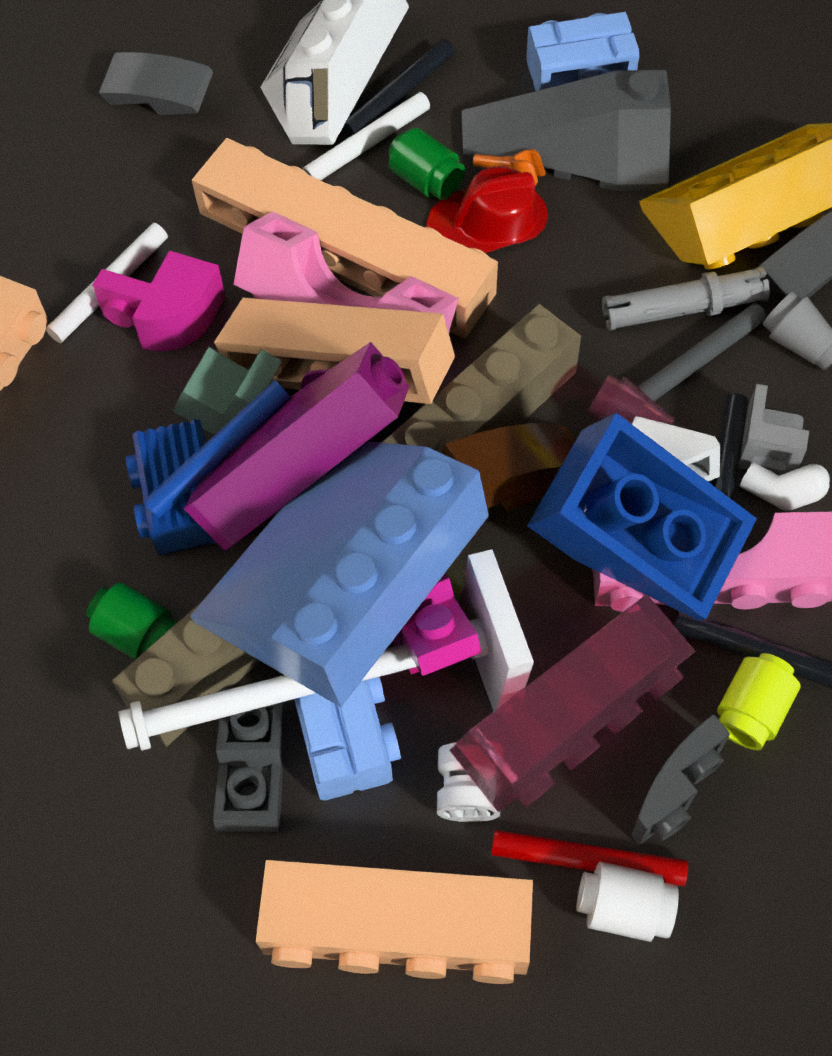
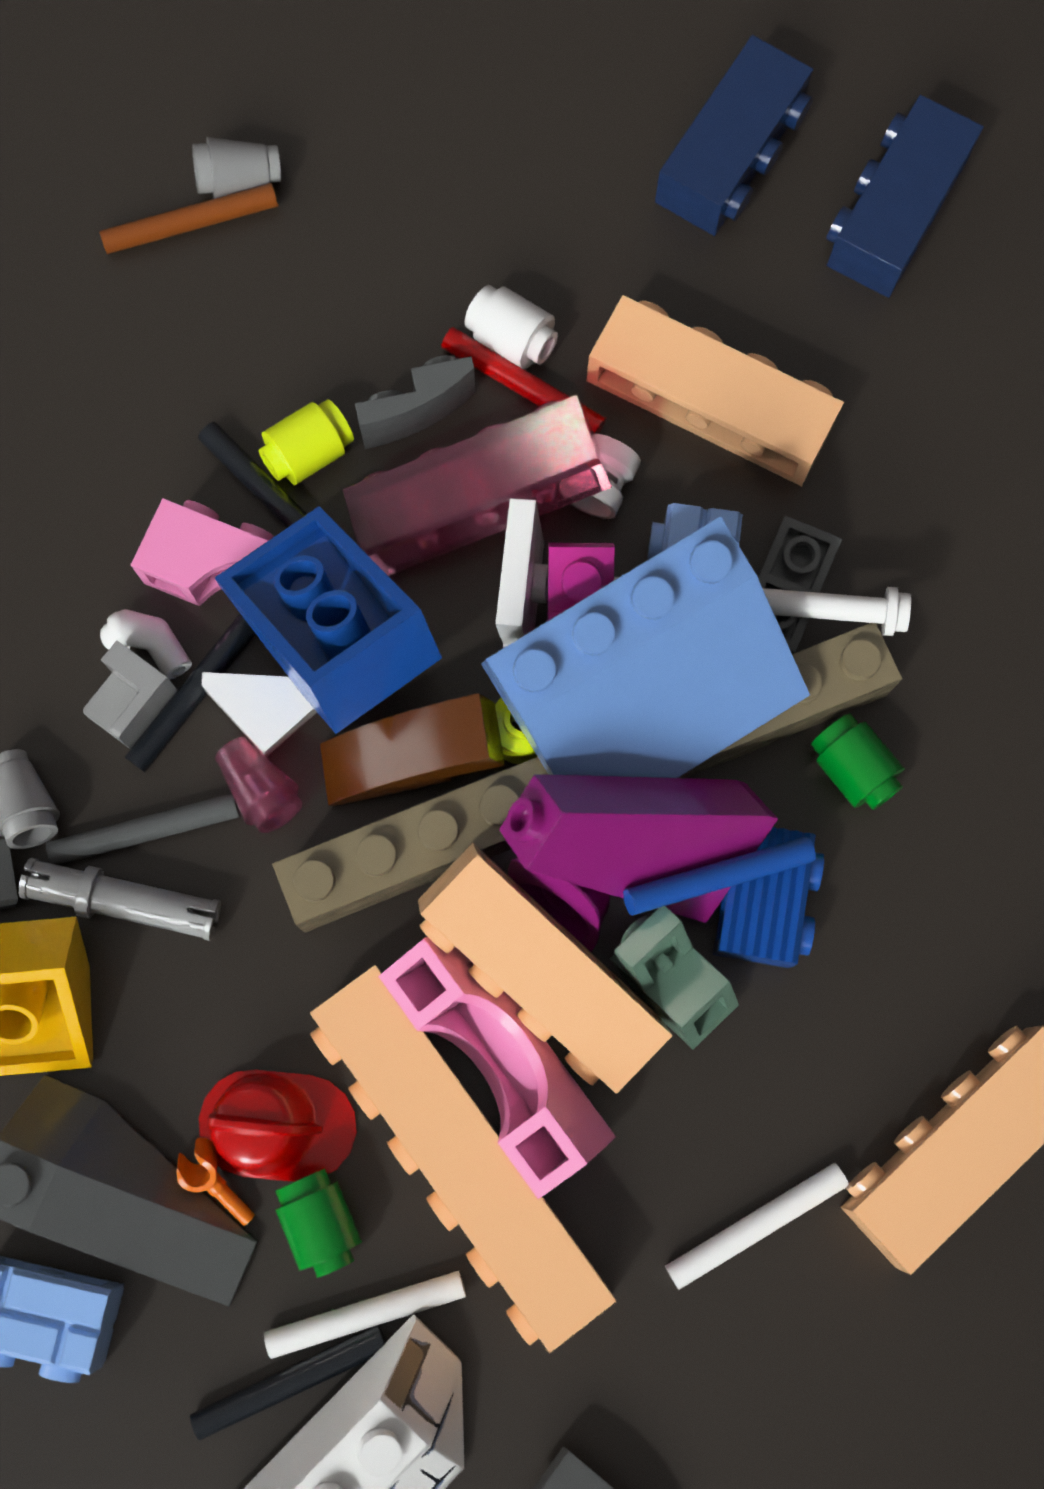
camera: 160 degrees left, 15 degrees up
(169, 309) = (693, 1136): dark pink brick -> none

